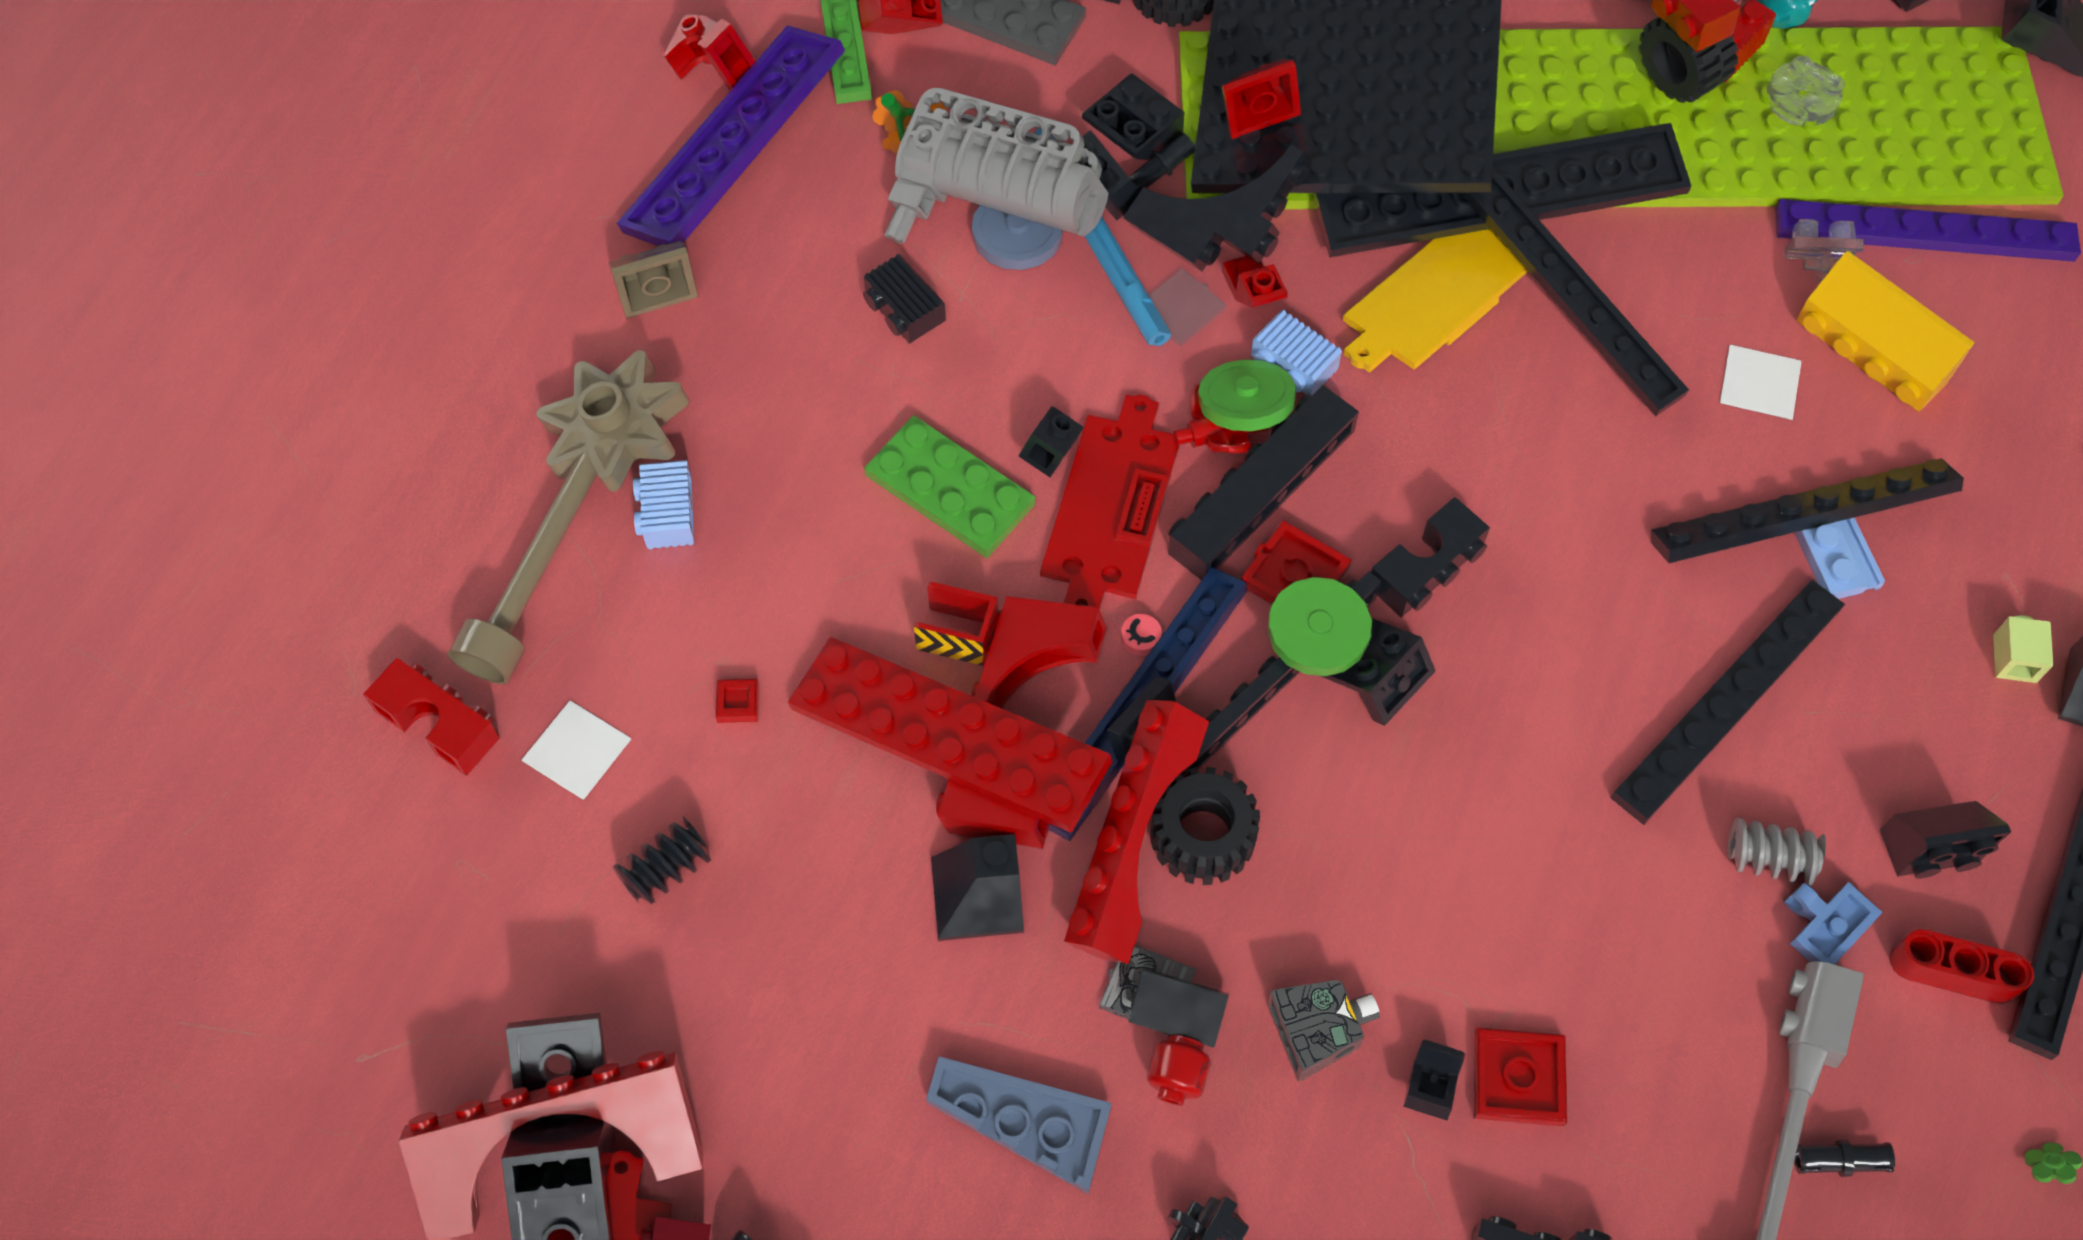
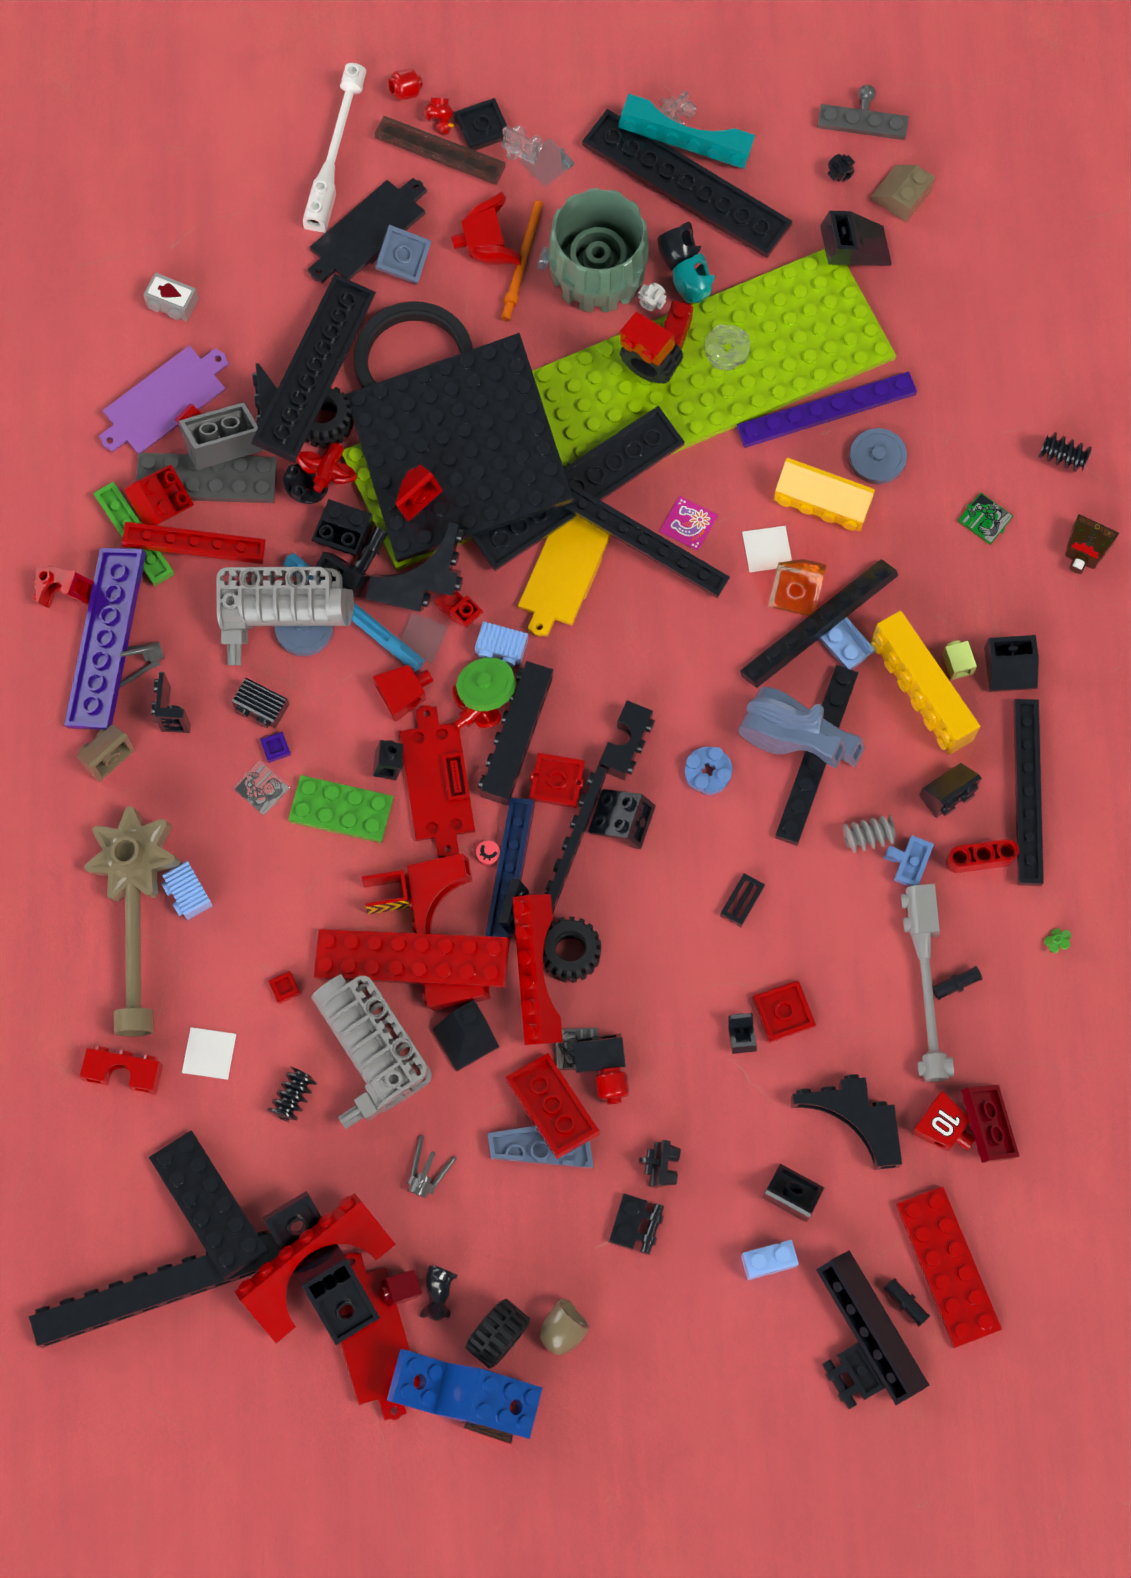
camera: 25 degrees left, 10 degrees up
(284, 1066) = (137, 1296): none -> black brick
(444, 975) = (208, 1205): none -> black plate
(764, 251) = (168, 717): none -> black bracket
(786, 179) = (151, 652): none -> dark grey plant
(792, 1087) = (421, 1184): none -> dark grey plant
(820, 842) = (371, 1046): none -> light grey piece
(849, 413) = (261, 787): none -> clear piece
(895, 114) = (194, 579): orange plant -> none
(897, 367) = (275, 747): none -> dark purple tile
(907, 57) = (193, 542): none -> red plate
(1065, 1060) = (552, 1106): none -> red plate
(1110, 51) = (300, 485): none -> black dish
(1119, 358) = (402, 689): none -> red torso
(1147, 40) = (326, 467): none -> red plant
(1319, 626) = (585, 812): bright green wheel -> none
(1319, 1023) = (673, 1029): dark grey torso -> none
(1493, 890) = (732, 917): none -> black tile
(1548, 632) = (703, 782): none -> medium blue plate
(1652, 303) = (688, 523): none -> dark pink sticker
(1693, 621) = (785, 725): none -> sand blue animal
(1790, 444) = (797, 586): none -> clear orange slope
(1822, 252) = (762, 450): clear hips -> none
(1956, 659) = (924, 683): none -> yellow brick
(1991, 315) = (878, 456): none -> sand blue wheel

